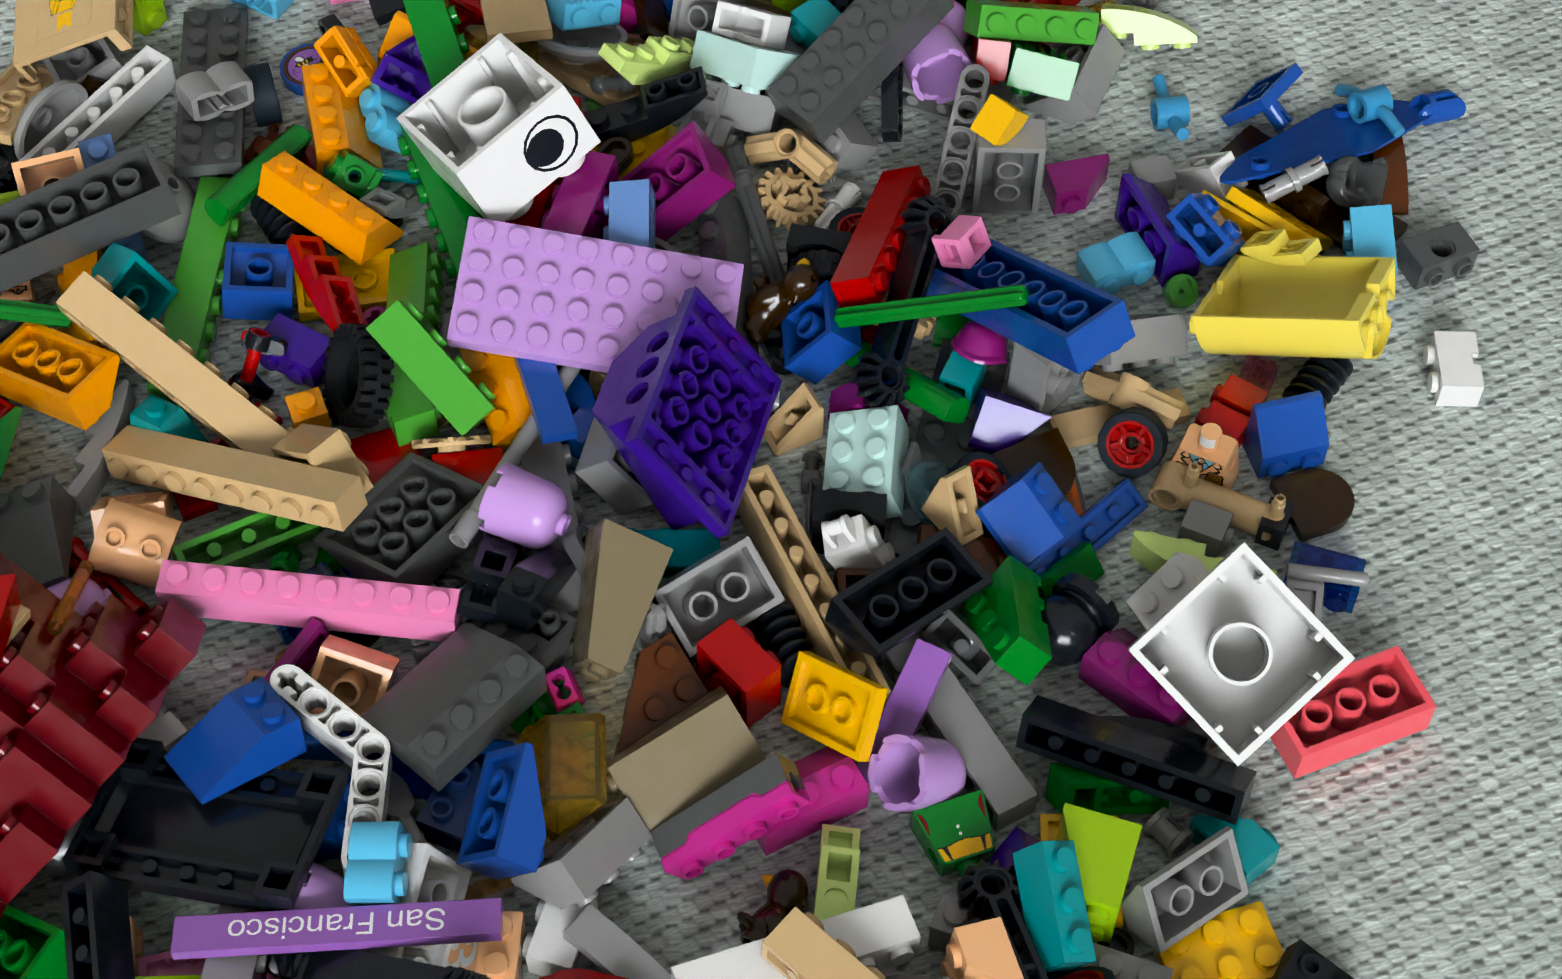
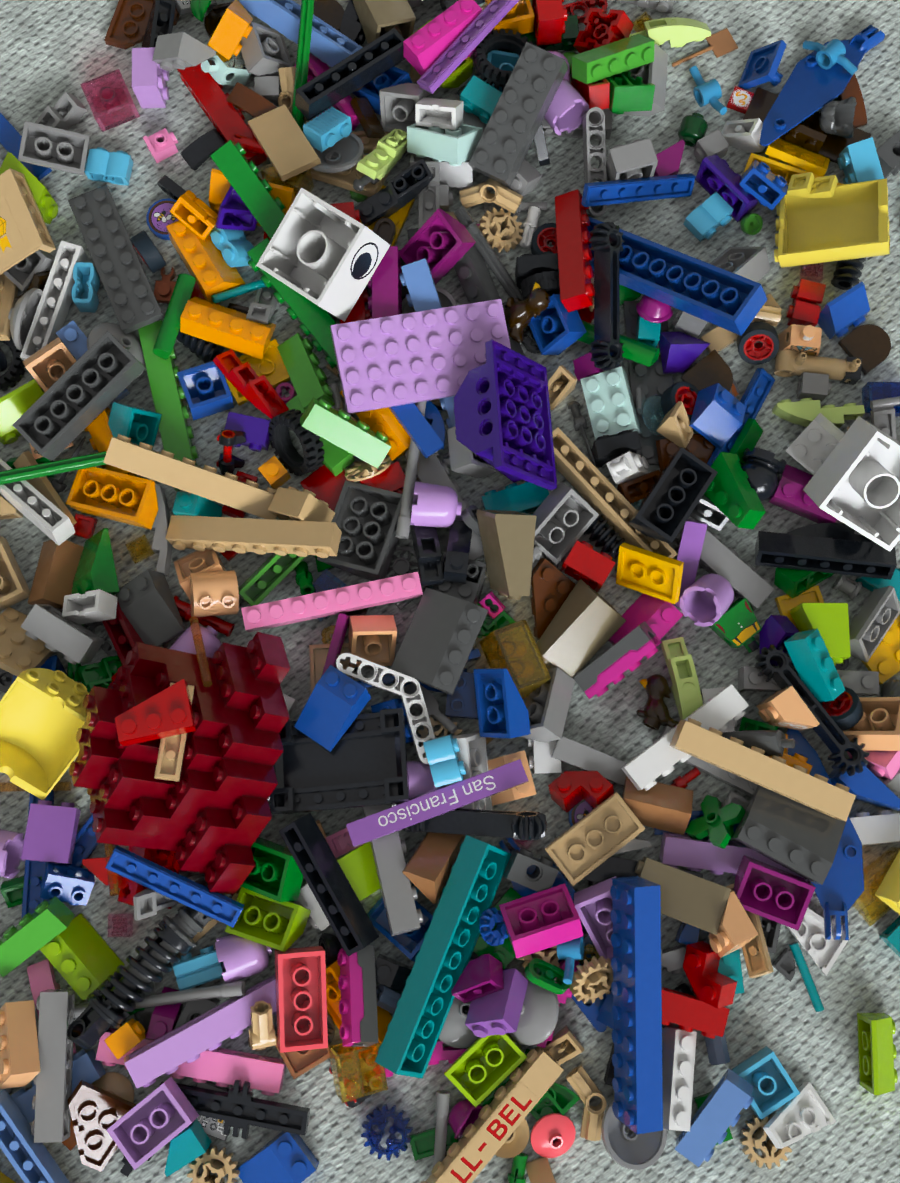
camera: 15 degrees left, 25 degrees up
(59, 464) = (139, 549): none -> clear yellow slope
(152, 113) = (85, 287): none -> medium azure brick
(214, 91) = (123, 266): light grey brick -> none
(343, 164) = (234, 298): green brick -> none
(932, 306) = (632, 304): green axle -> none
(962, 242) = (632, 249): bright pink brick -> none
(998, 121) = (625, 151): yellow brick -> none
(1012, 192) = (637, 189): none -> blue tile
(1129, 145) = (692, 129): none -> dark green head
(1211, 64) = (719, 43): none -> medium nougat piece
(1217, 134) = (740, 100): none -> tile
(1293, 179) = (804, 129): light grey pin -> none

